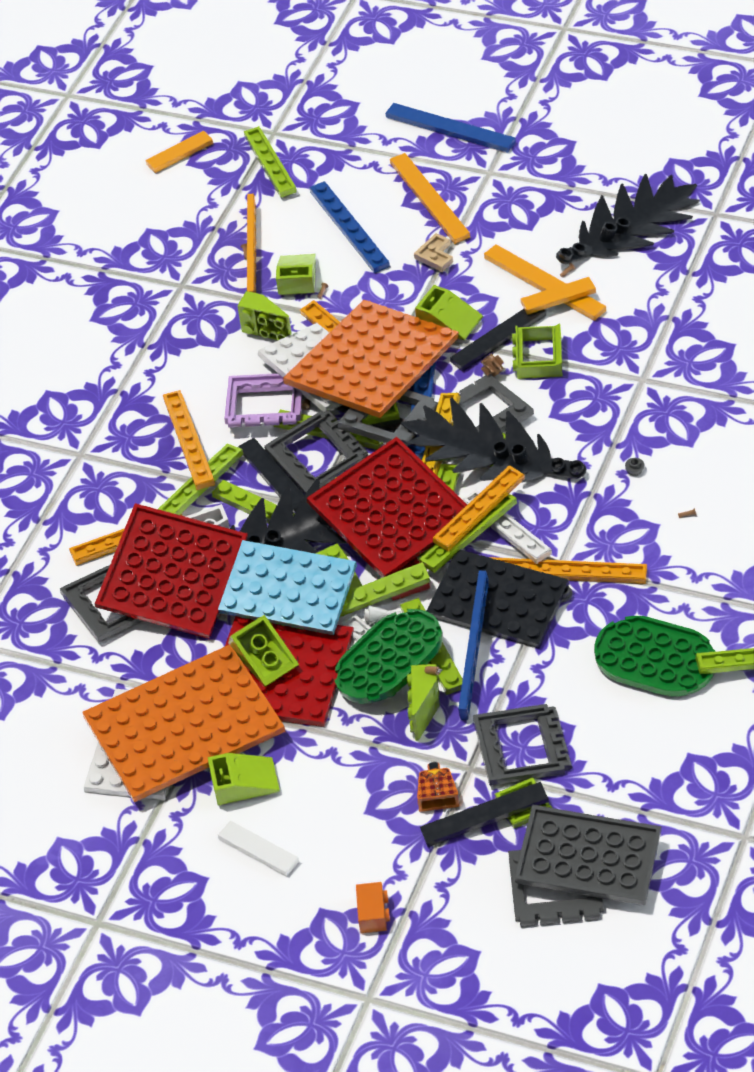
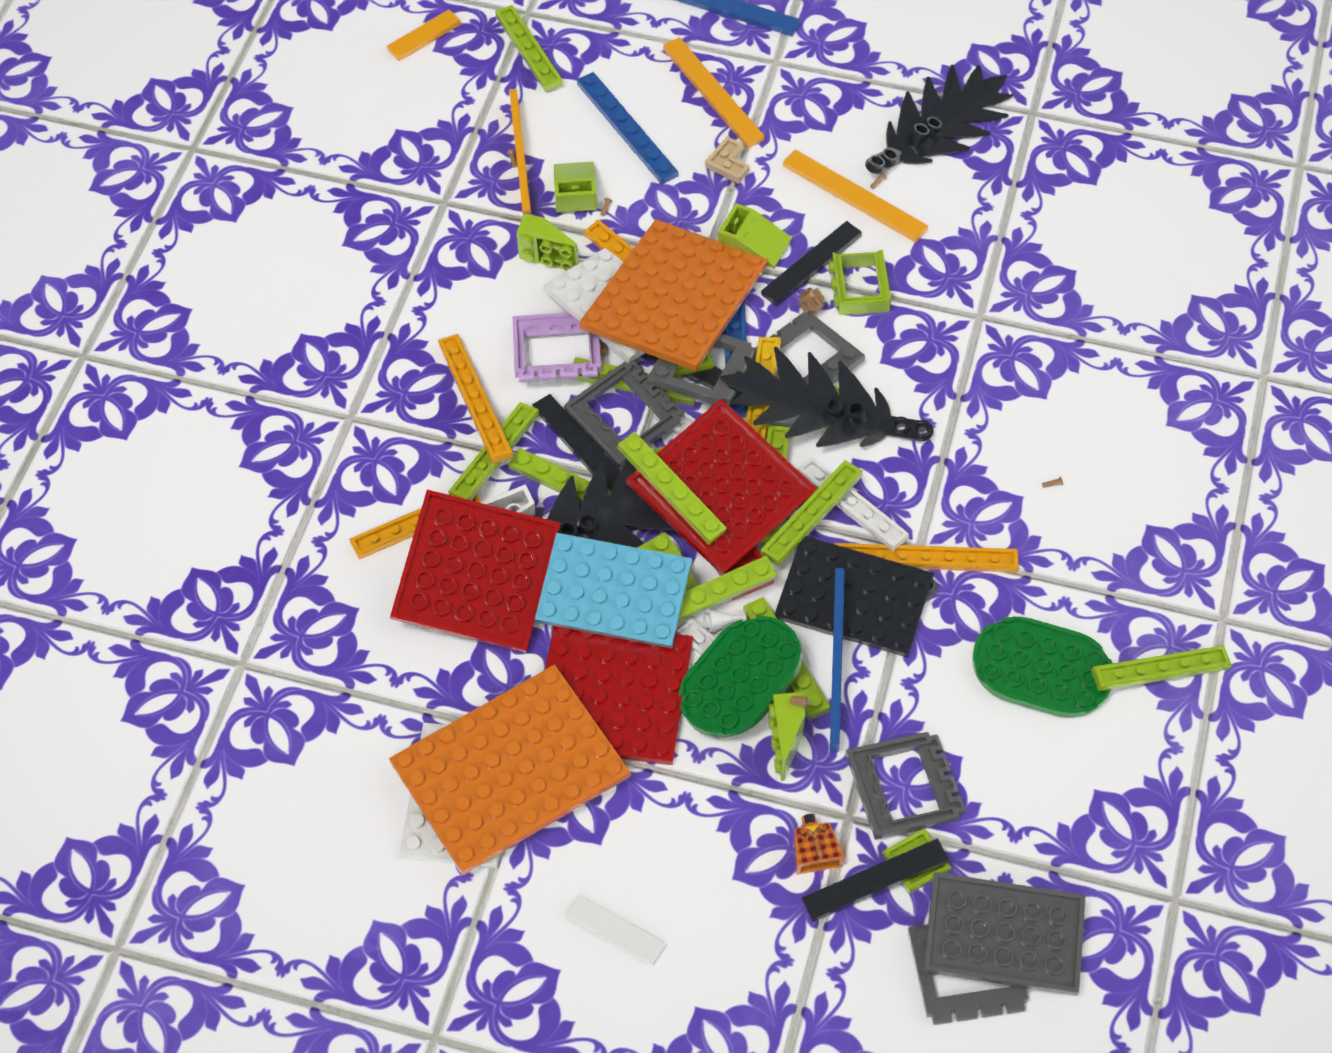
camera: 10 degrees left, 10 degrees up
(86, 611) = (378, 620): dark grey hinge -> none
(242, 777) = (587, 838): lime slope -> none
(263, 651) = (595, 675): lime slope -> none
(345, 505) = (671, 488): none -> lime plate
(371, 907) = (759, 1009): orange brick -> none
(478, 508) = (822, 485): light orange tile -> none
(558, 295) = (874, 213): light orange tile -> none
(634, 466) = (986, 429): dark grey plate -> none

